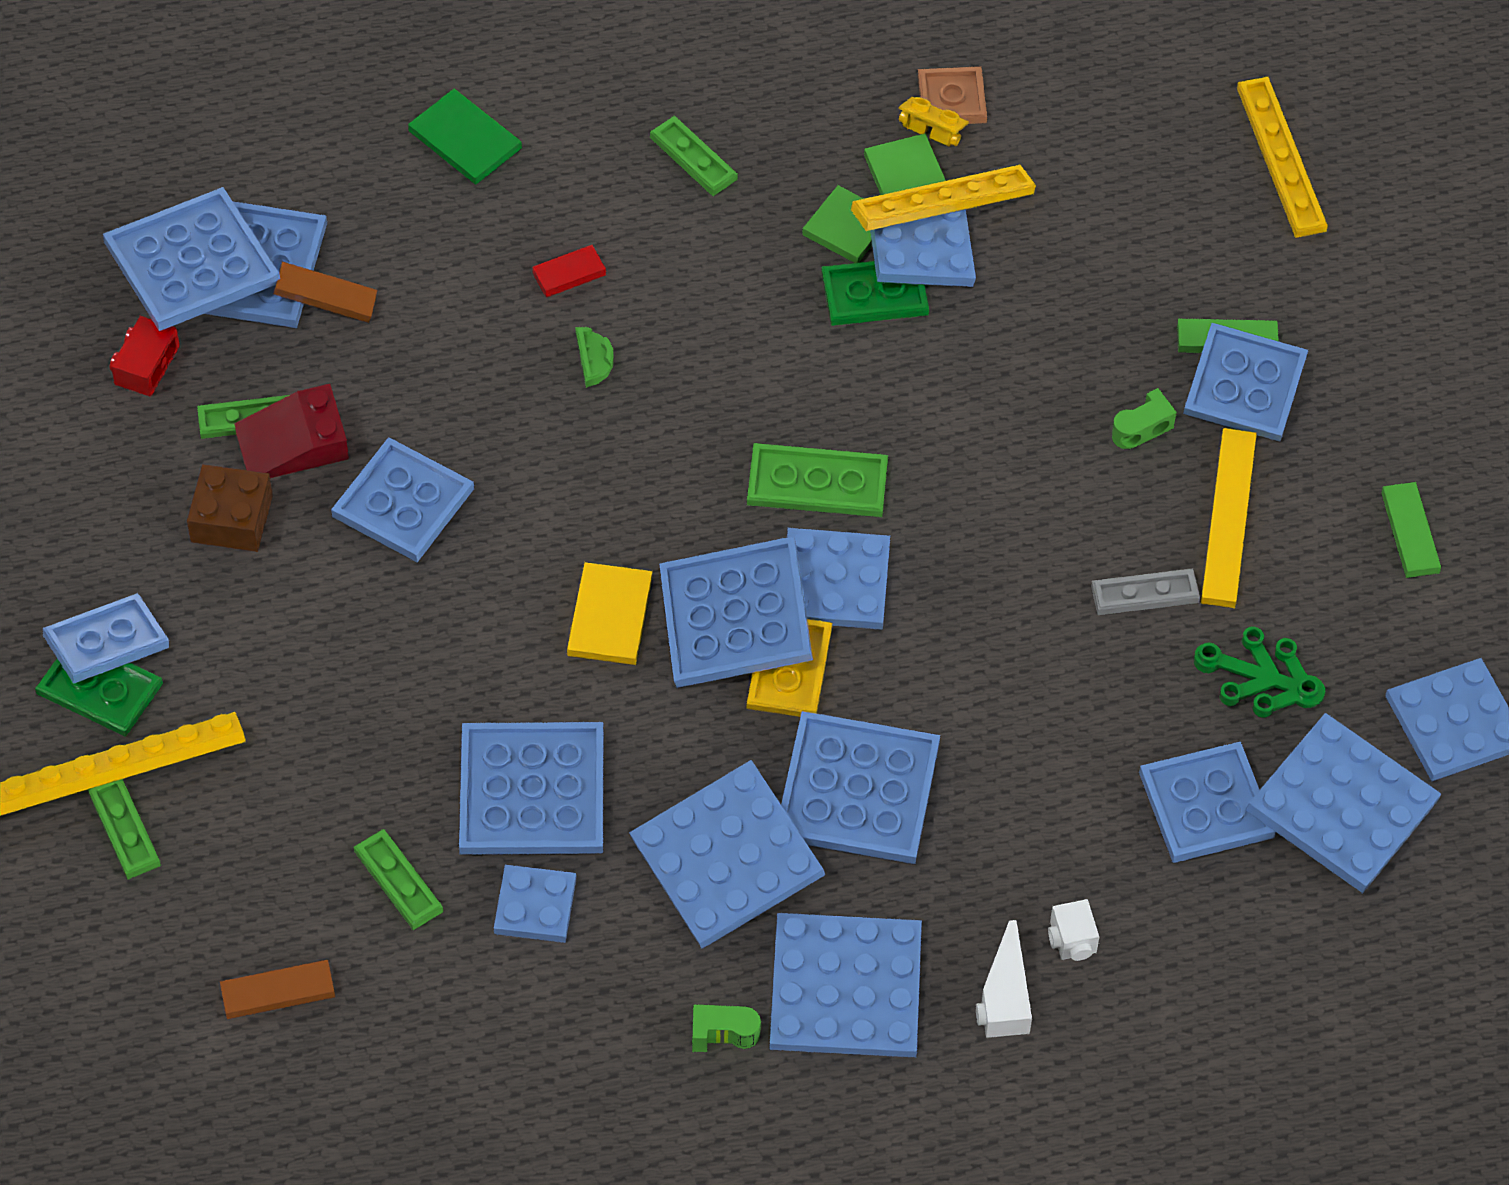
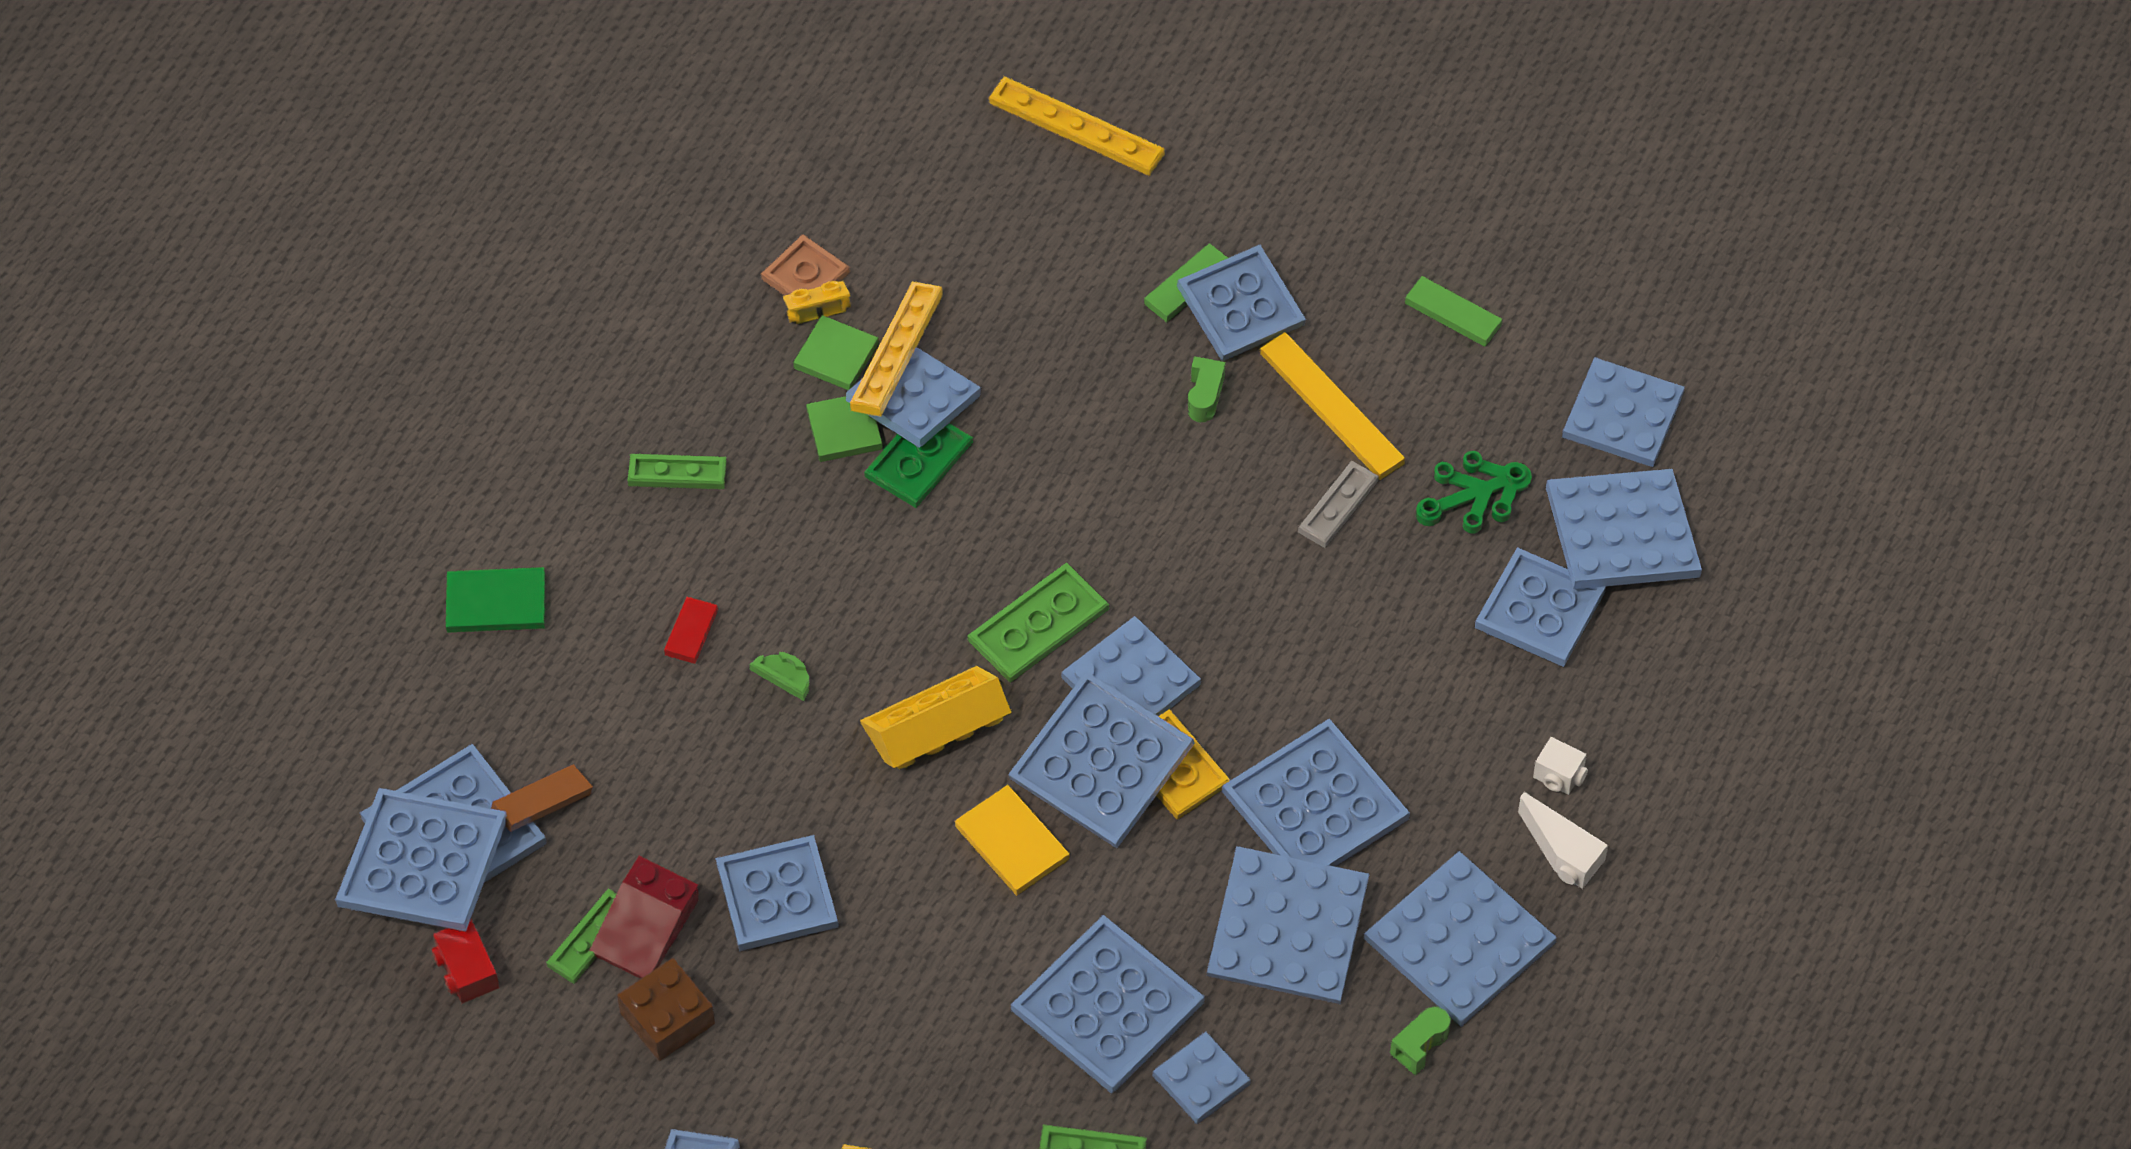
camera: 45 degrees left, 0 degrees up
(658, 479) = (937, 717): none -> yellow slope

